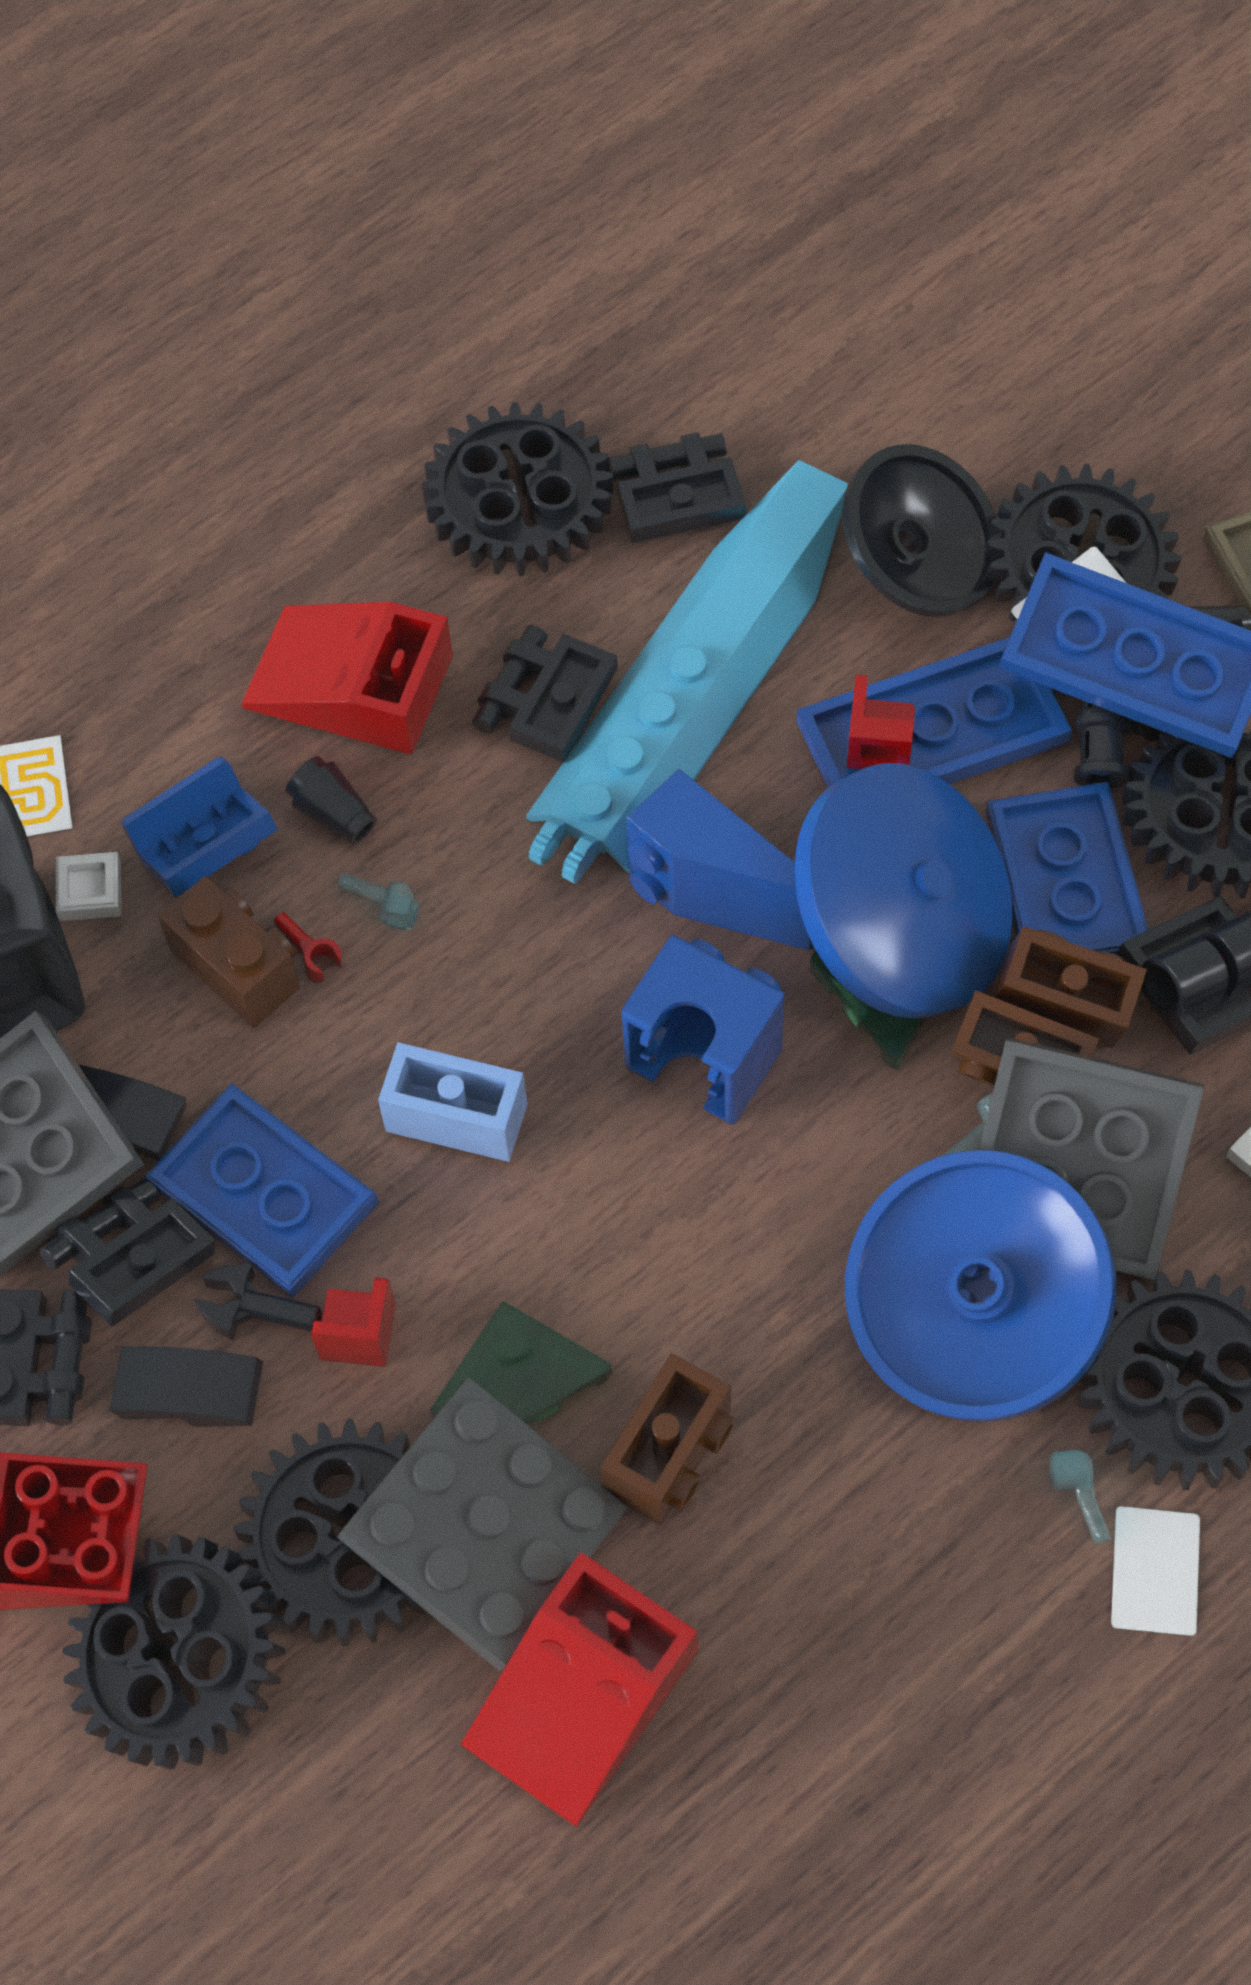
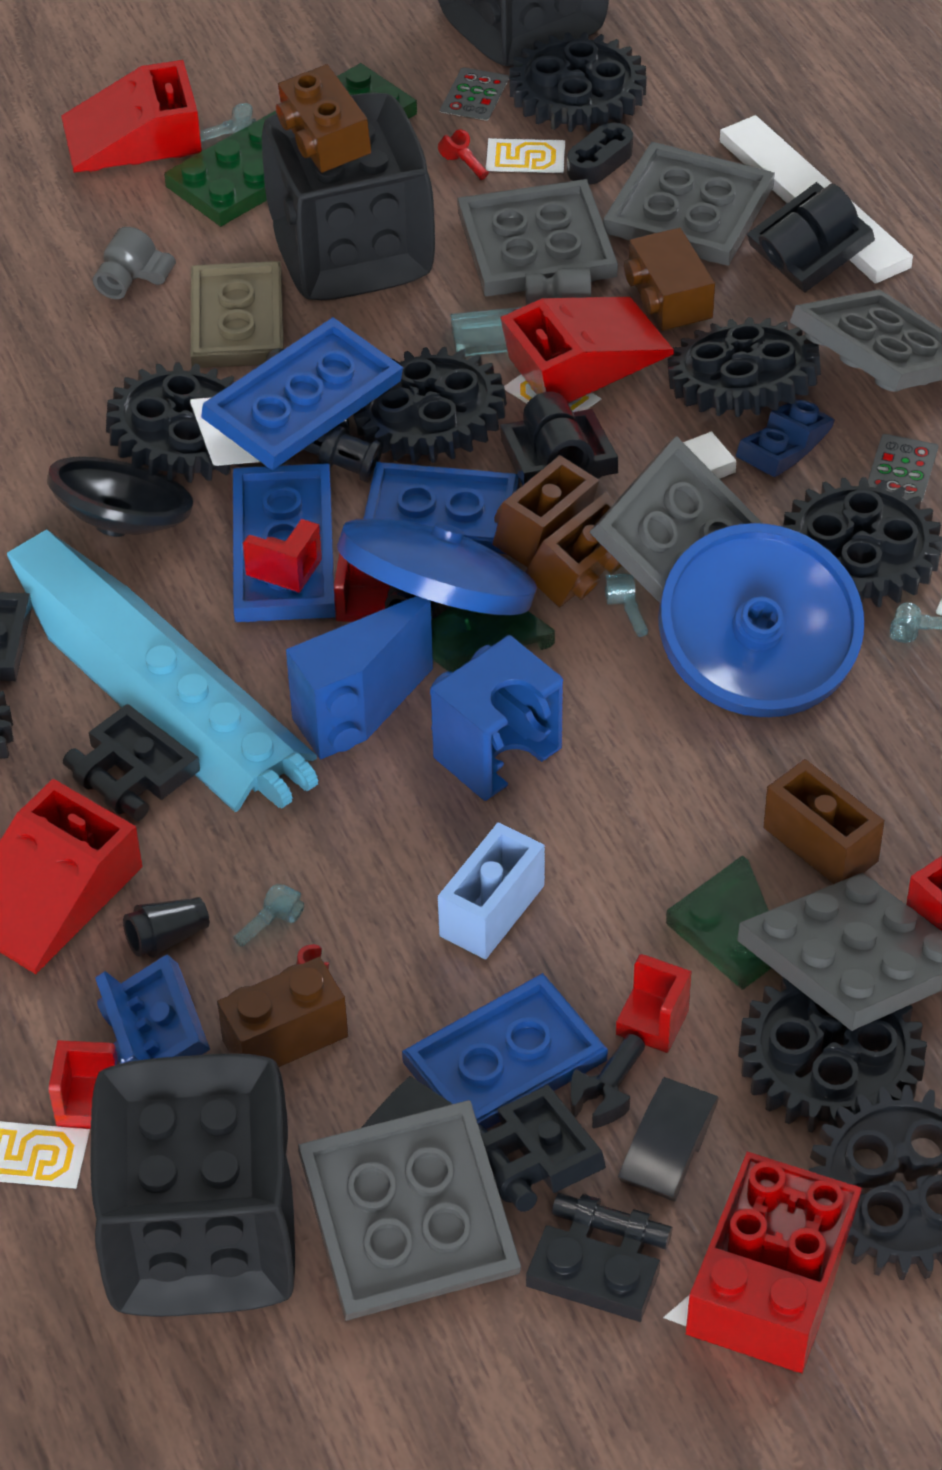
camera: 75 degrees left, 15 degrees down
(96, 797) = (74, 1078): none -> red panel

